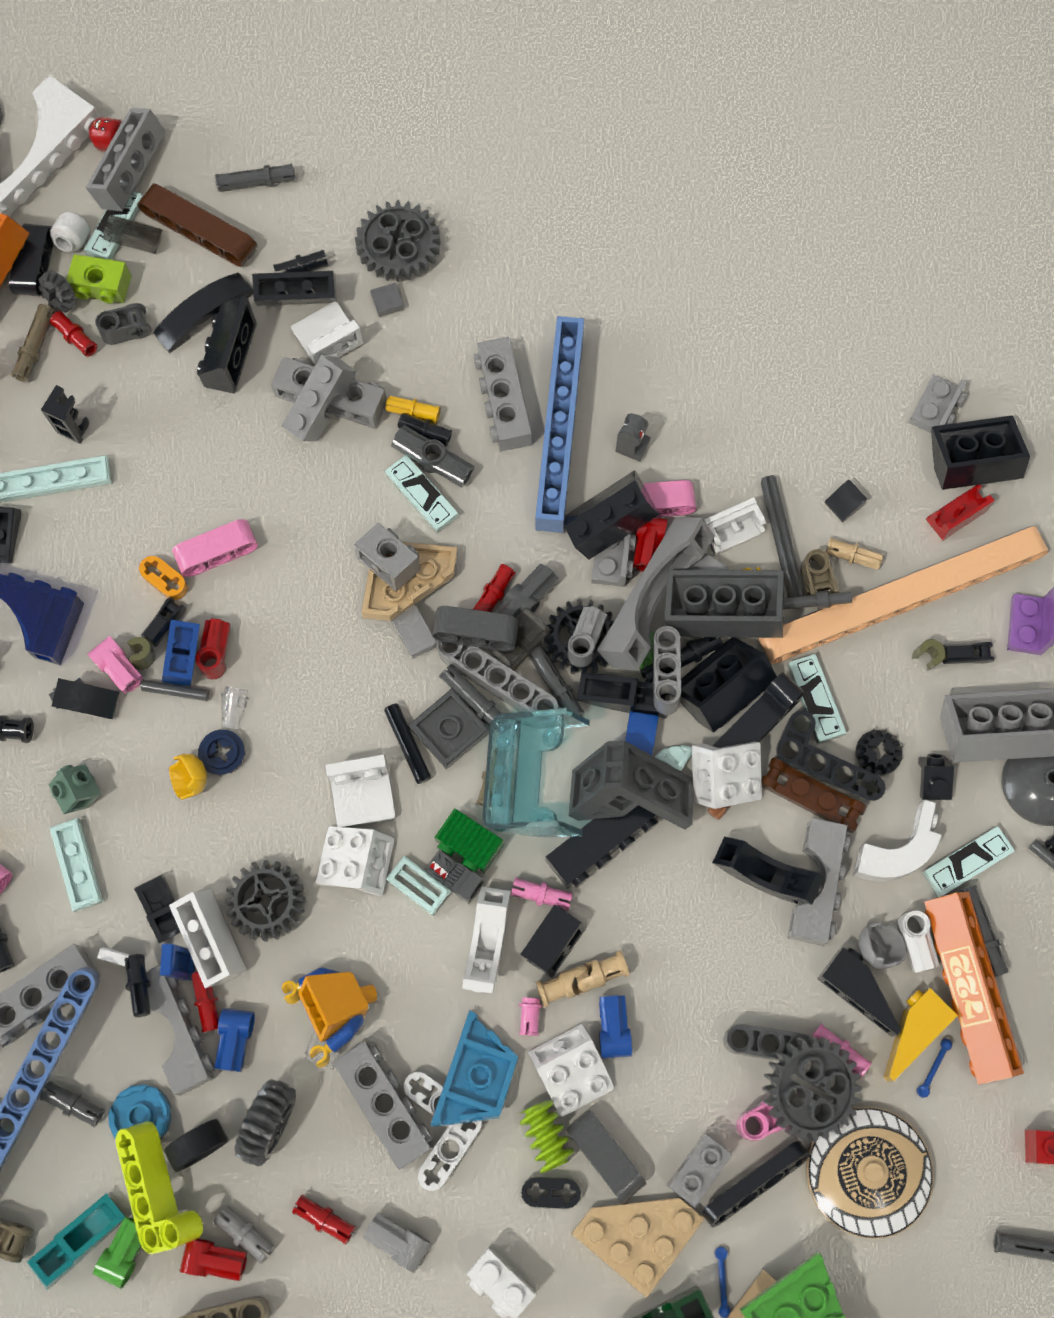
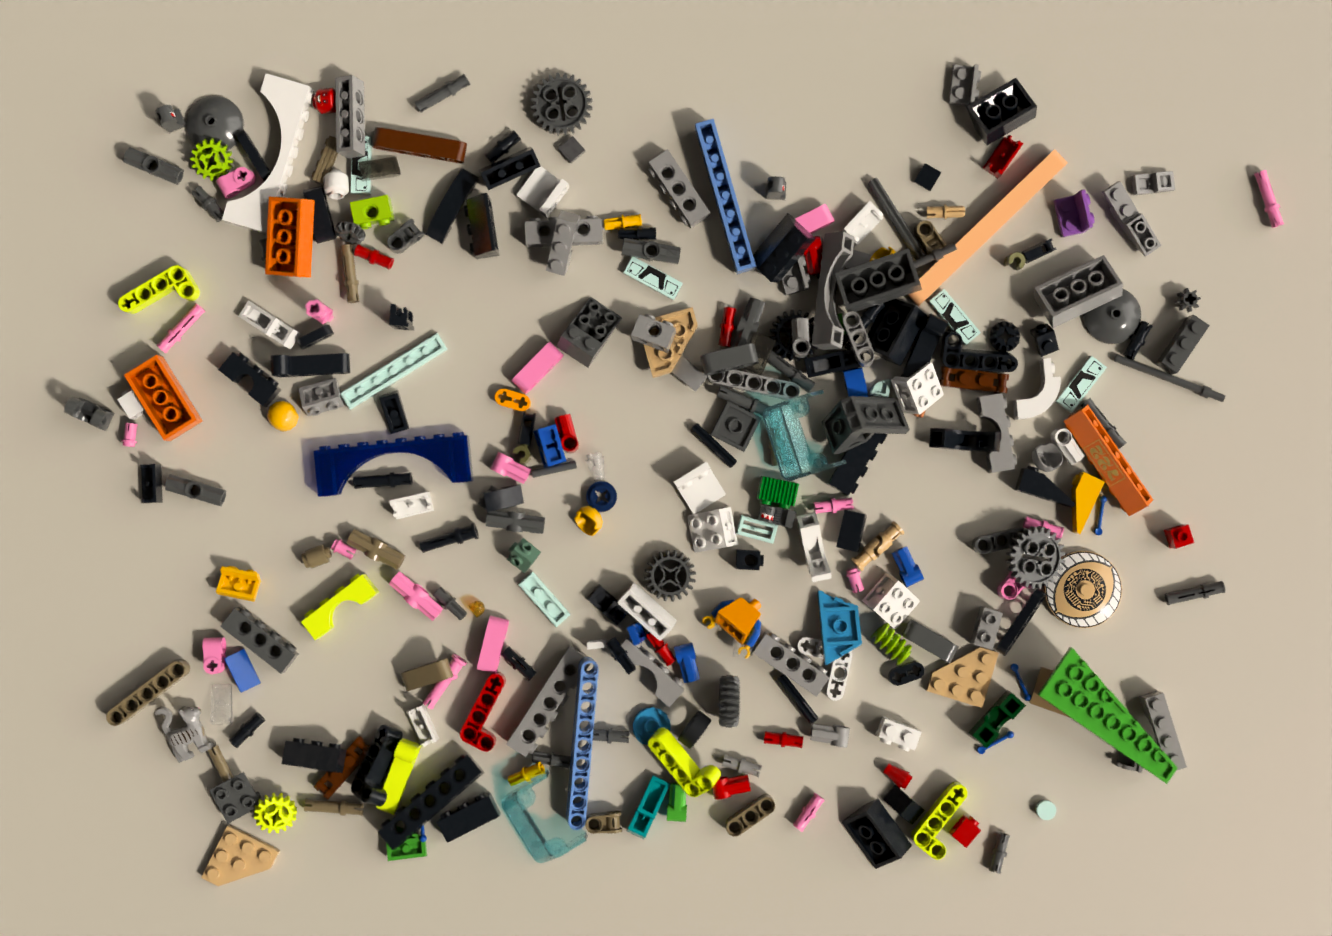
camera: 20 degrees left, 15 degrees up
(75, 201) = (327, 160): none -> dark tan piece
(87, 739) = (515, 521): none -> dark grey piece
(303, 528) = (588, 332): none -> dark grey slope
(371, 1164) = (797, 698): none -> black axle
(375, 917) = (740, 560): none -> black brick

